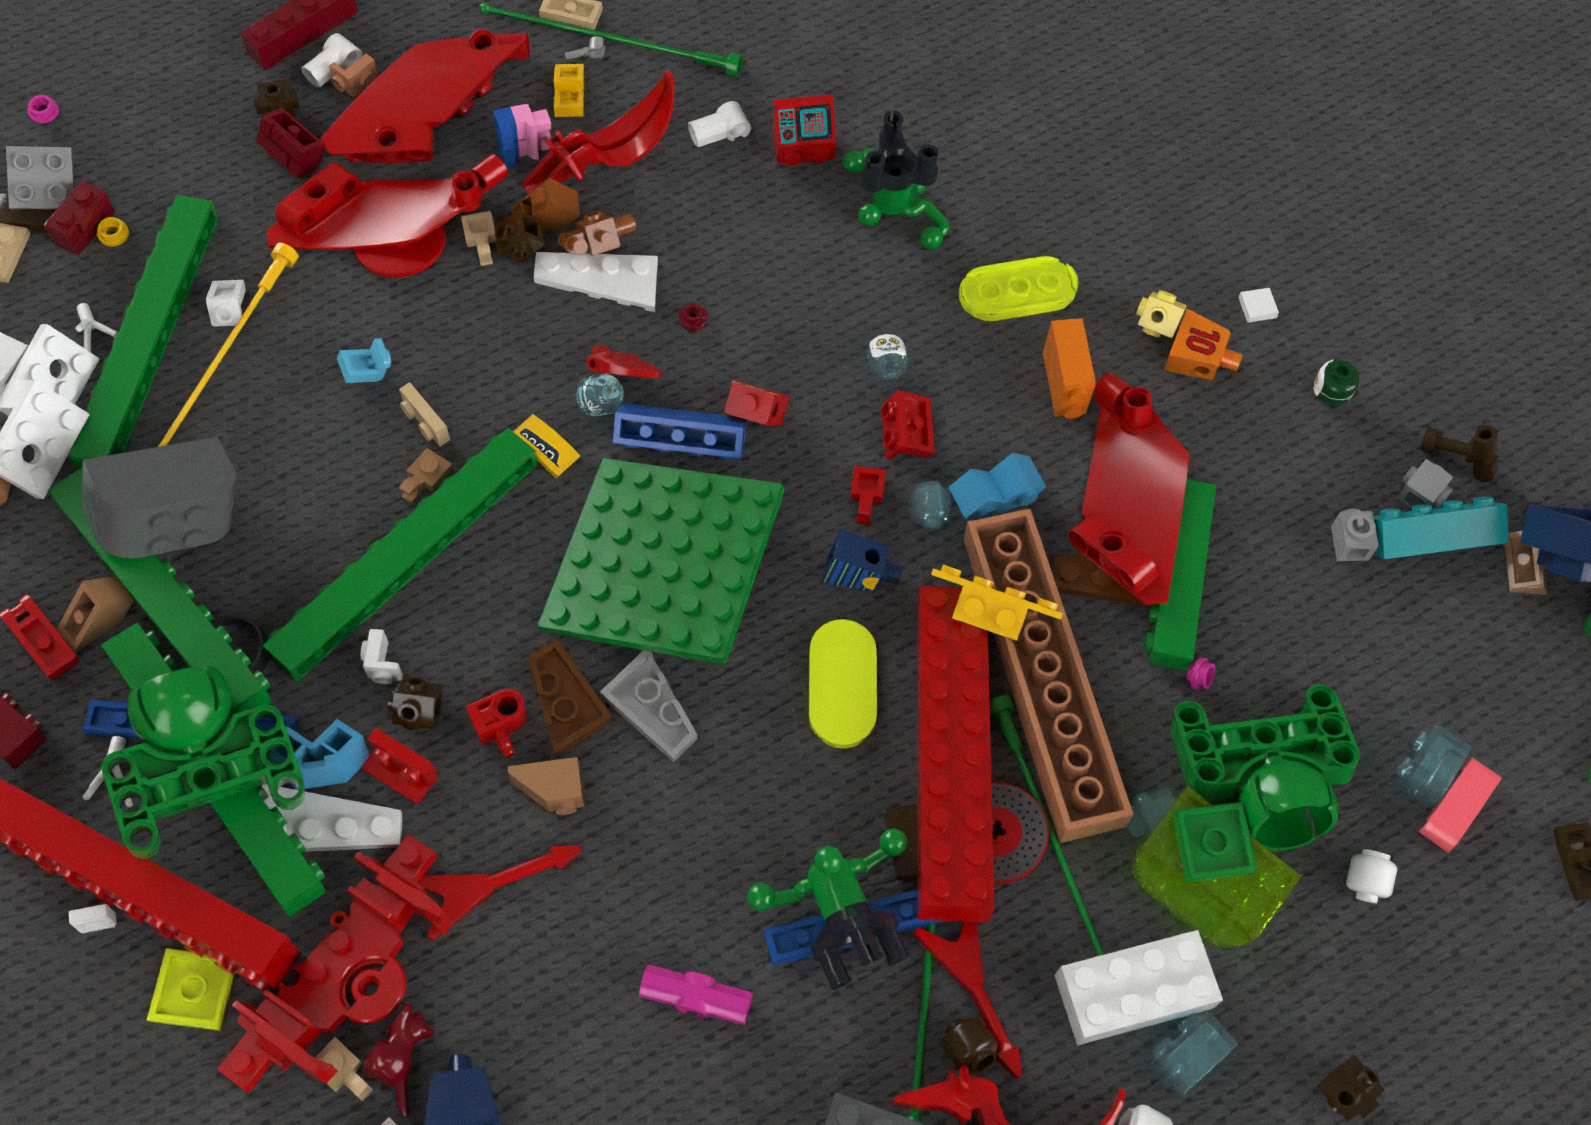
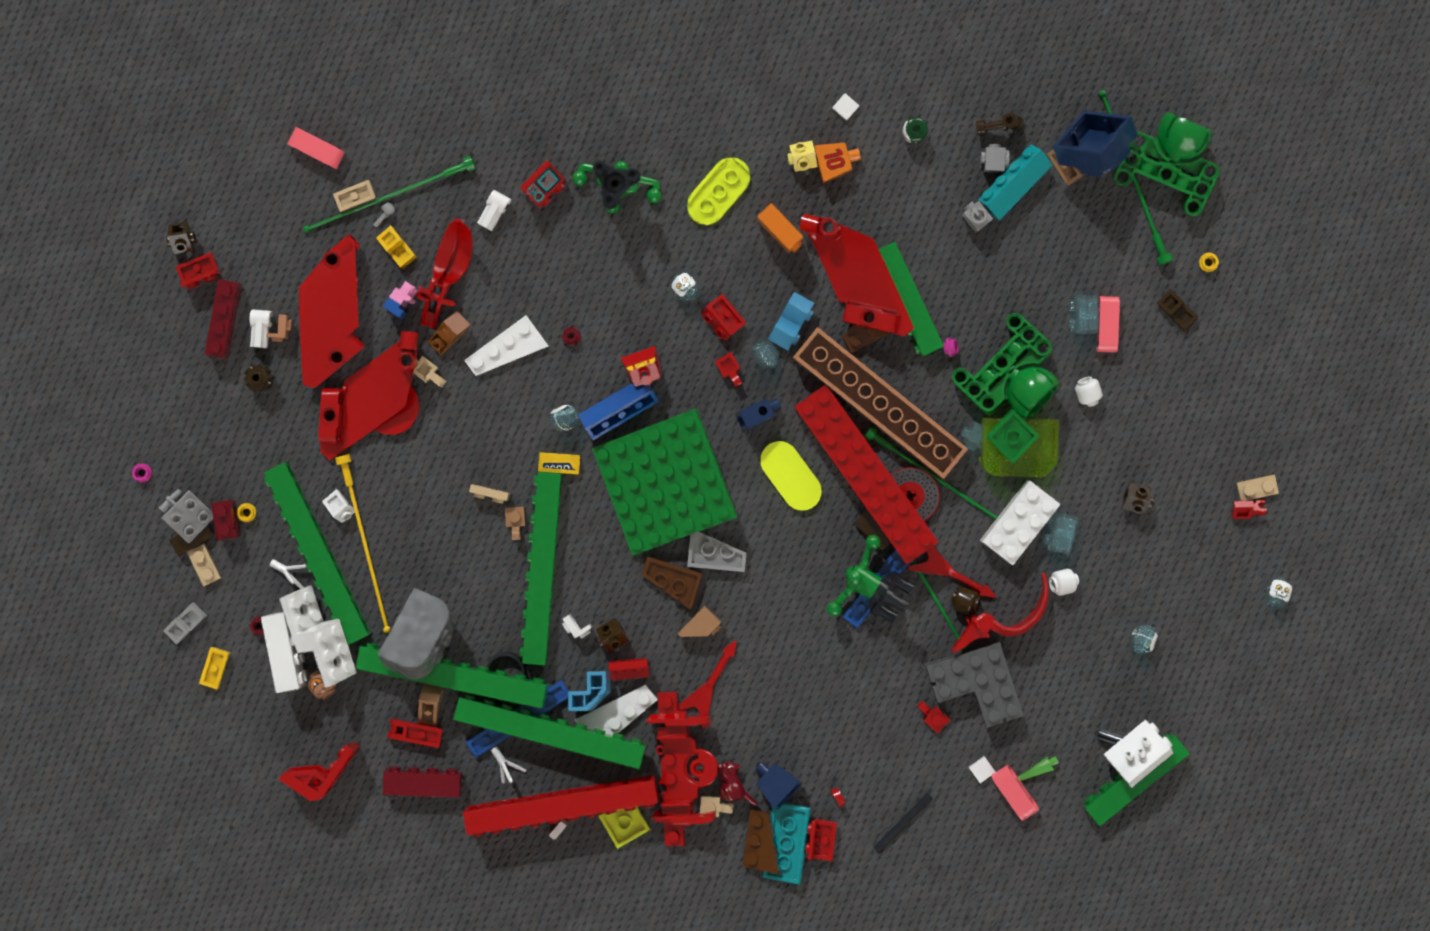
camera: 30 degrees left, 25 degrees up
(192, 737) = (539, 733): green beam -> none
(290, 143) = (289, 397): dark red brick -> none
(364, 364) = (436, 487): medium azure bracket -> none
(493, 725) = (650, 618): red piece -> none
(519, 236) = (451, 361): dark brown brick -> none
(596, 233) = (487, 330): dark orange piece -> none
(605, 361) = (561, 394): red arm -> none
(695, 994) = (835, 667): dark pink piece -> none
(990, 608) = (837, 396): yellow bracket -> none

